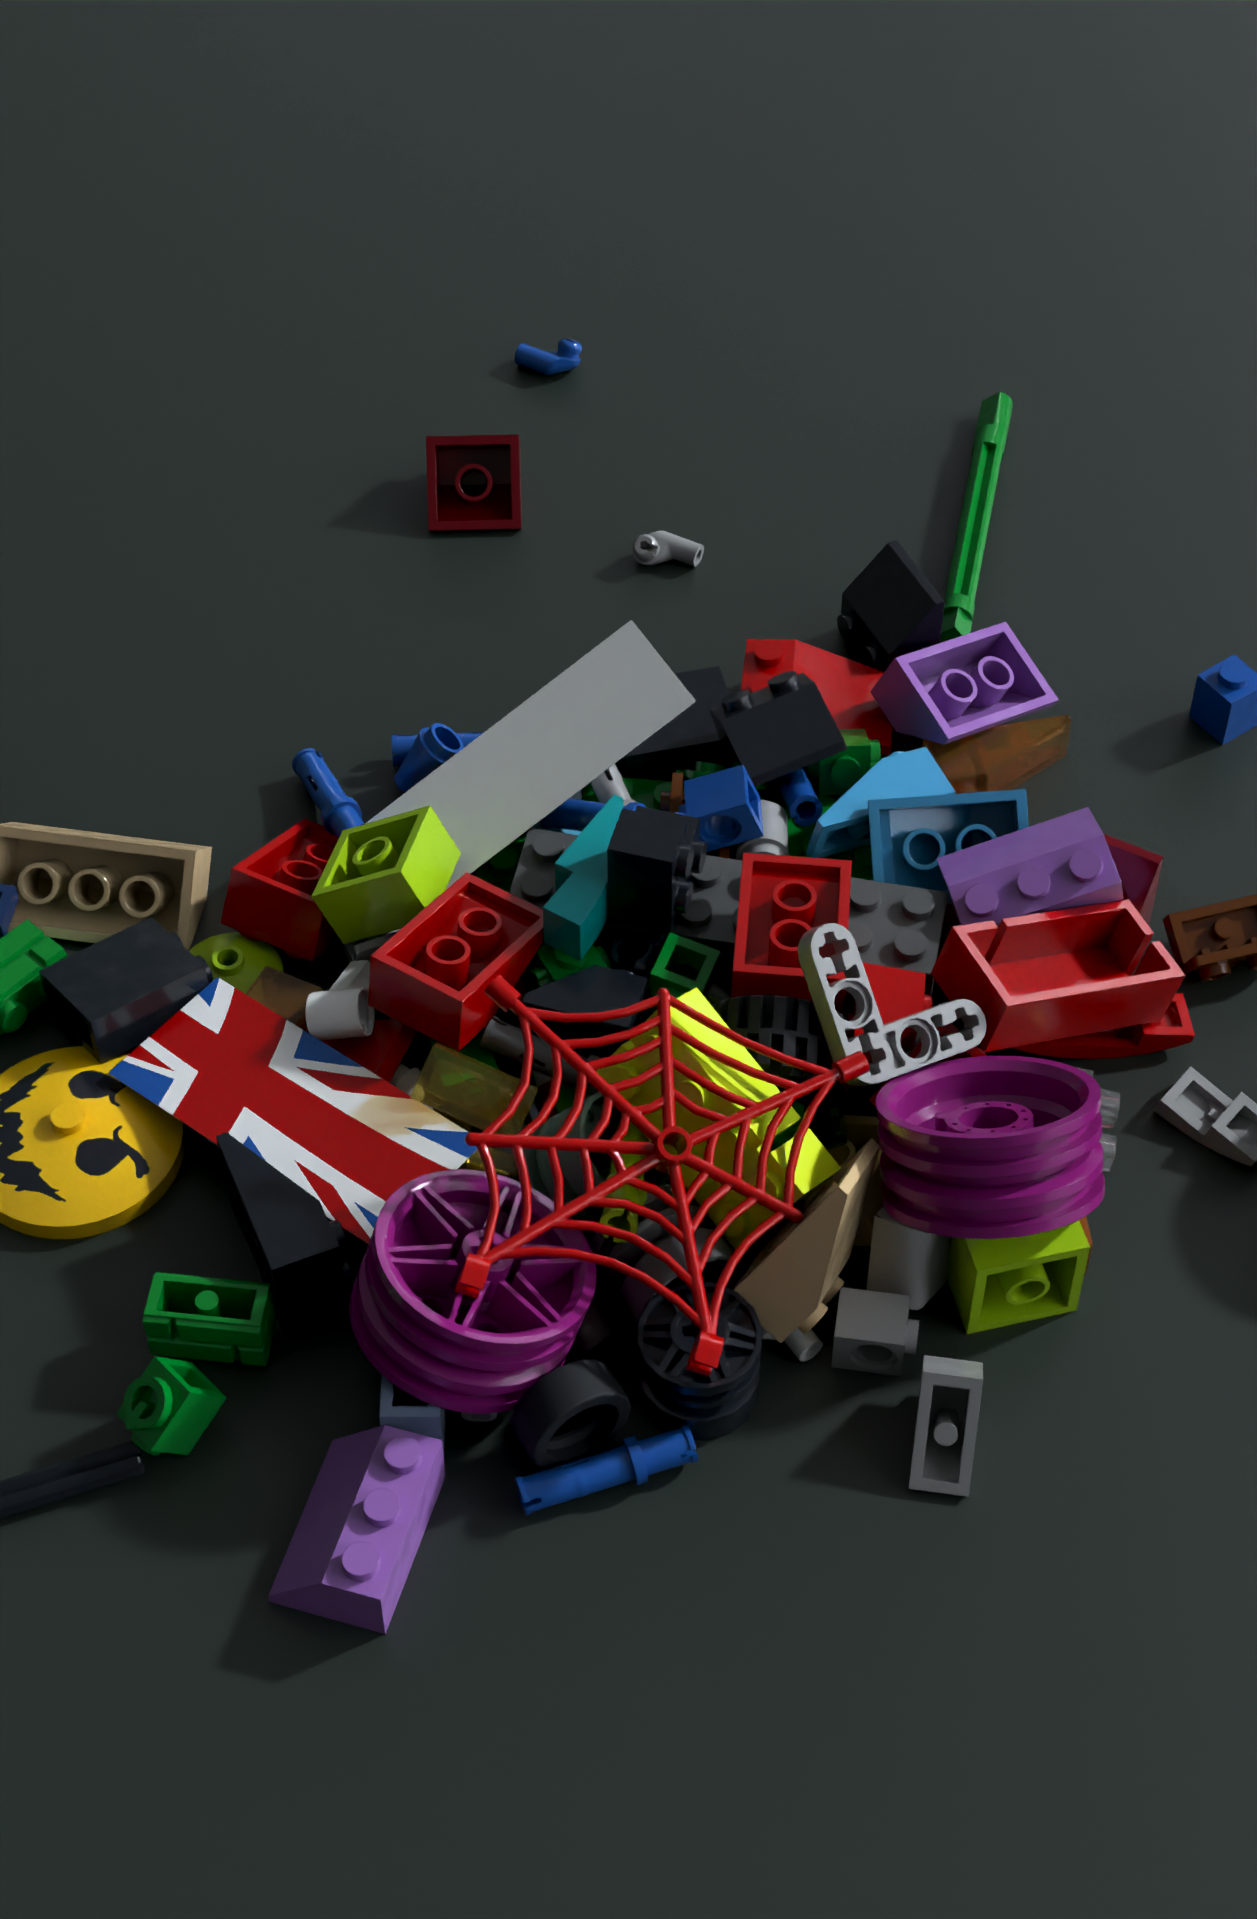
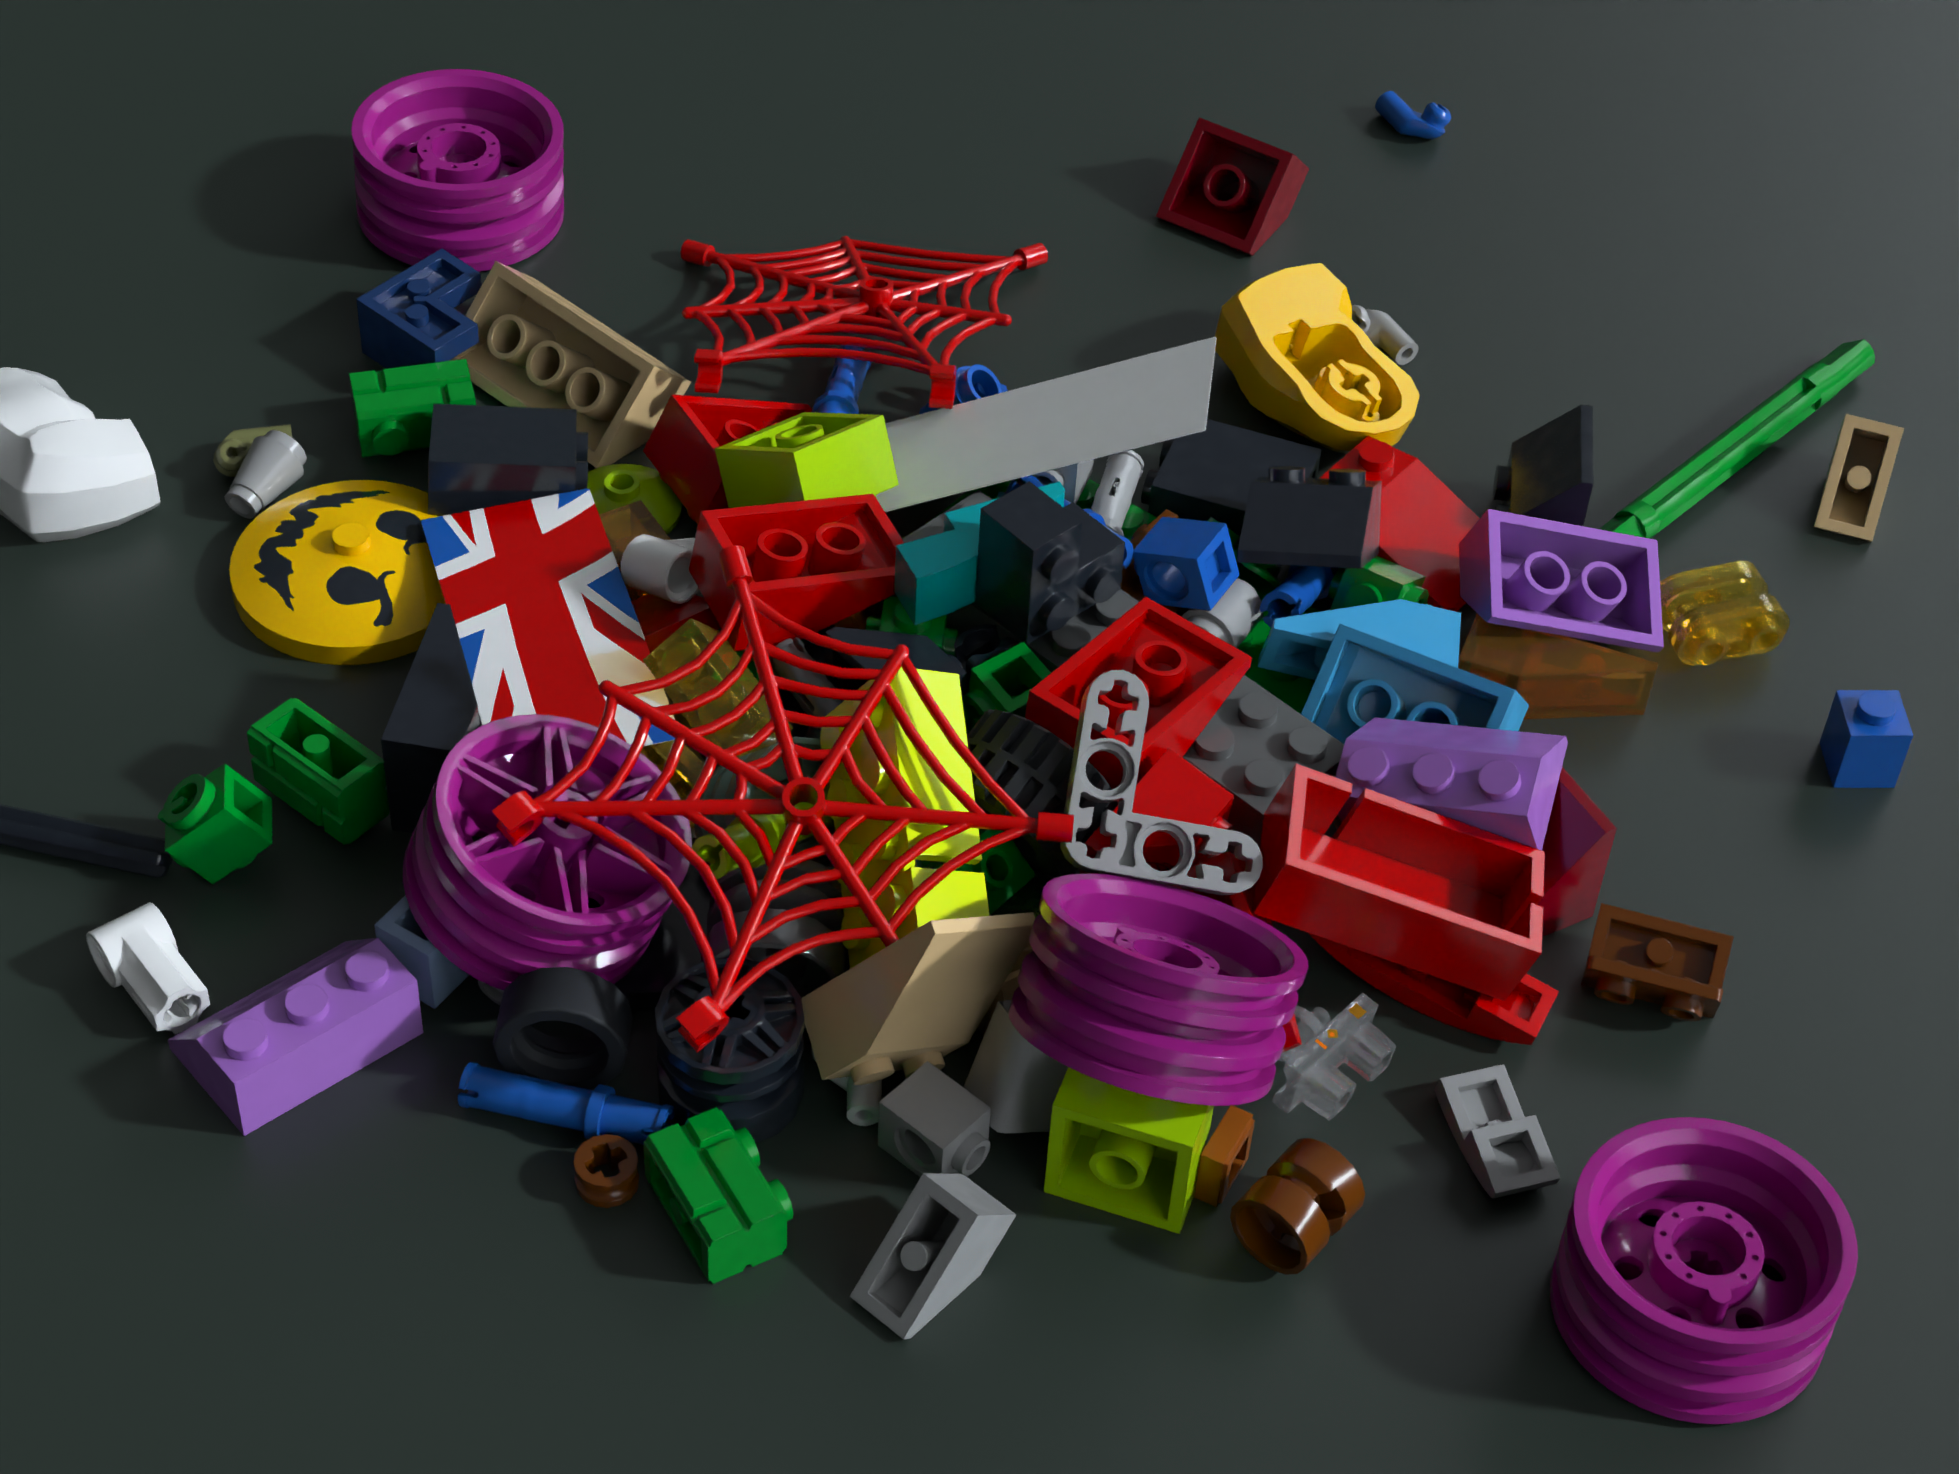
camera: 30 degrees right, 5 degrees down
(195, 1543) = (145, 959): none -> white piece
(295, 713) = (869, 306): none -> red animal
(672, 601) = (1311, 363): none -> yellow piece
(680, 1516) = (618, 1155): none -> reddish brown bush
(769, 1470) = (717, 1194): none -> green brick
(1070, 655) = (1721, 613): none -> clear yellow brick
(1073, 502) = (1858, 477): none -> tan slope
(1150, 1246) = (1297, 1206): none -> reddish brown wheel

